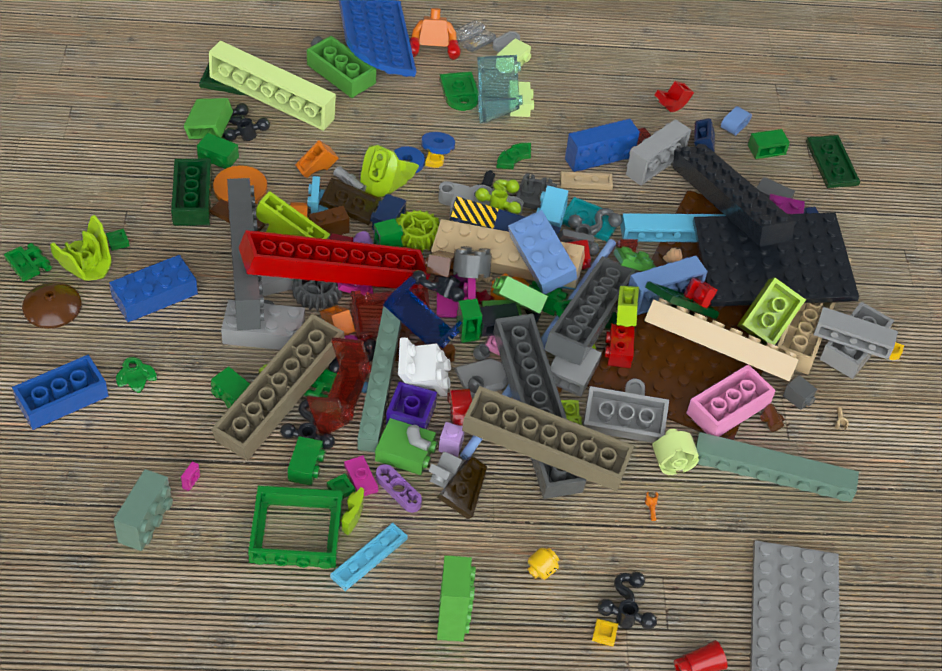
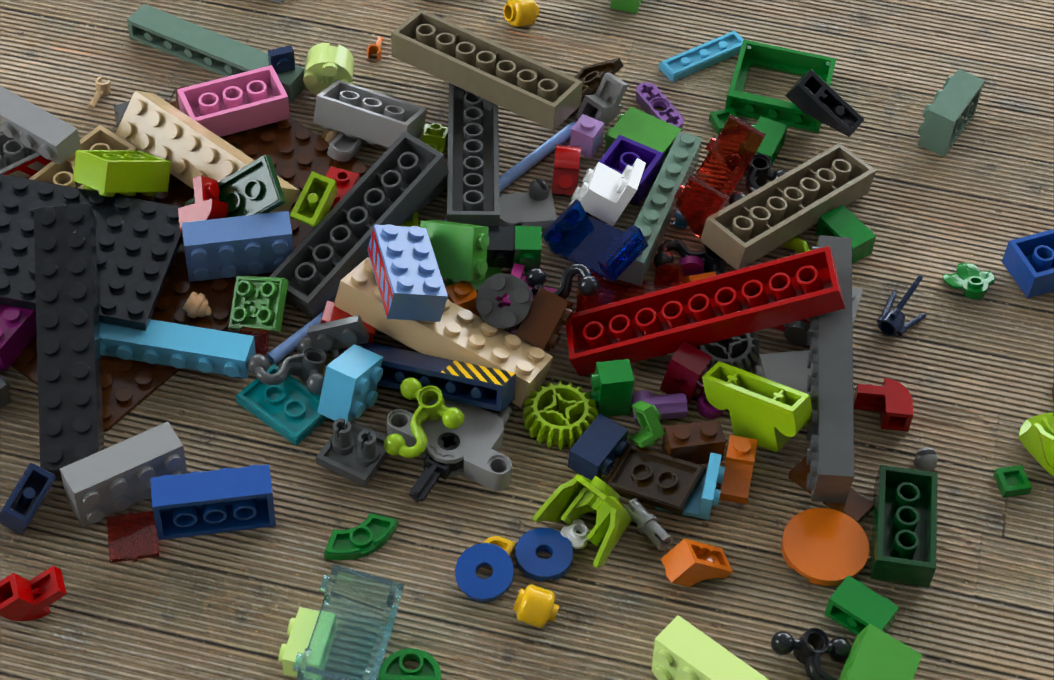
camera: 165 degrees left, 0 degrees up
(153, 288) = (957, 381): blue brick -> none
(175, 244) = (926, 459): none -> light grey hinge
(190, 476) = (898, 150): dark pink tile -> none
(195, 330) = (892, 321): none -> dark blue plant
(204, 271) = (890, 399): none -> red brick
(261, 480) = (821, 102): none -> black slope
(352, 516) = (715, 86): lime slope -> none
(360, 221) = (648, 418): none -> bright green bracket
(361, 475) = (699, 124): dark pink plate -> none
(405, 128) = (535, 606): none -> yellow head
(415, 438) = (634, 123): light grey arm -> none
(583, 180) = (284, 475): tan tile -> none
(714, 440) = (282, 59): none -> dark blue plate

